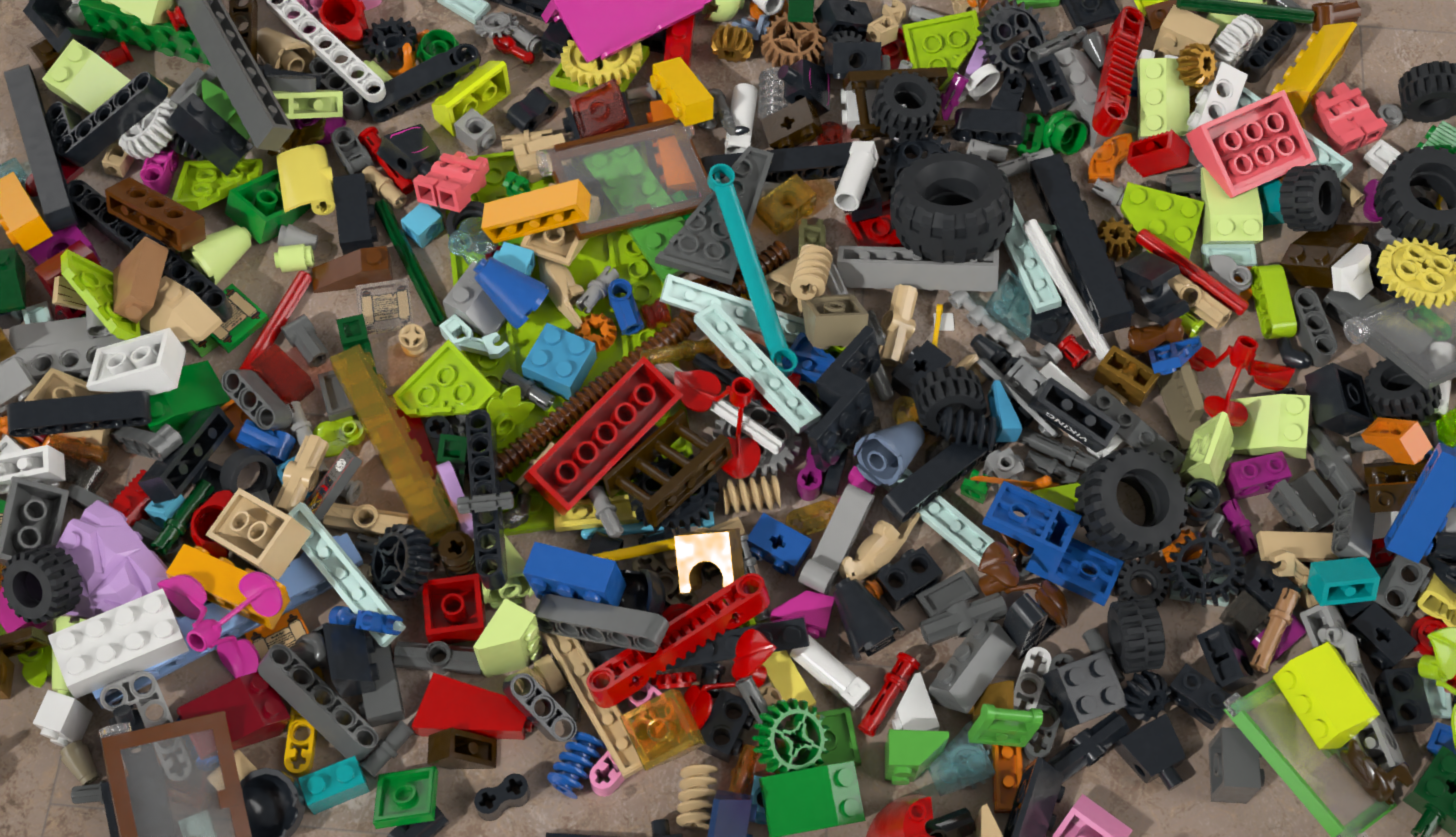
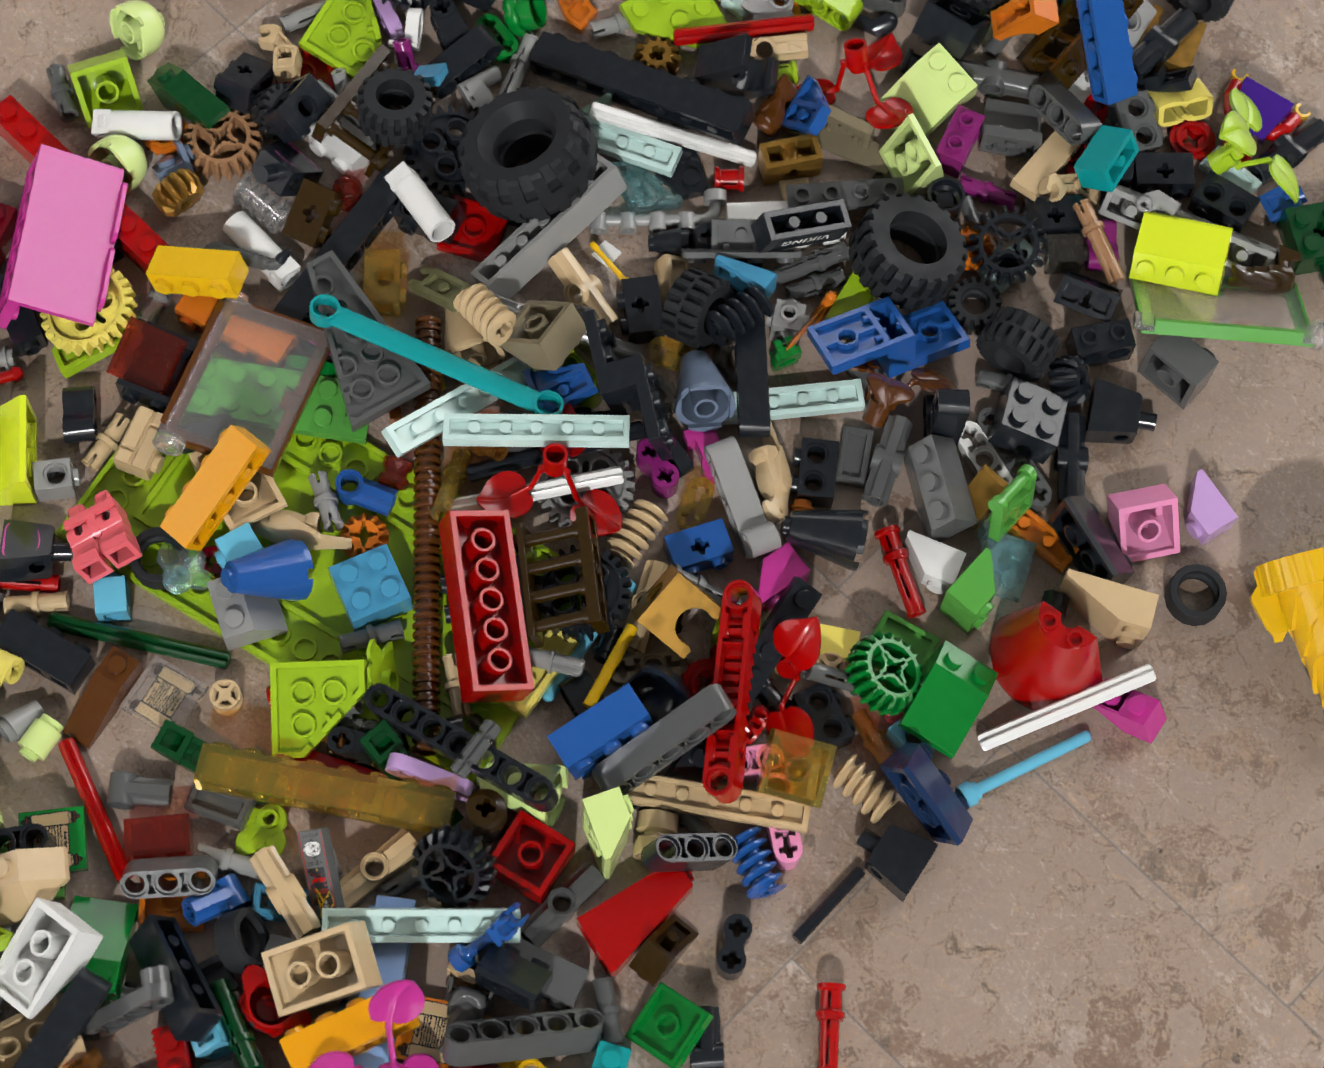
camera: 55 degrees left, 5 degrees up
(455, 326) = (291, 642): light aqua piece -> none
(519, 181) = (156, 495): green piece -> none
(832, 673) = (854, 599): white piece -> none
(956, 113) = (432, 73): none -> dark azure tile

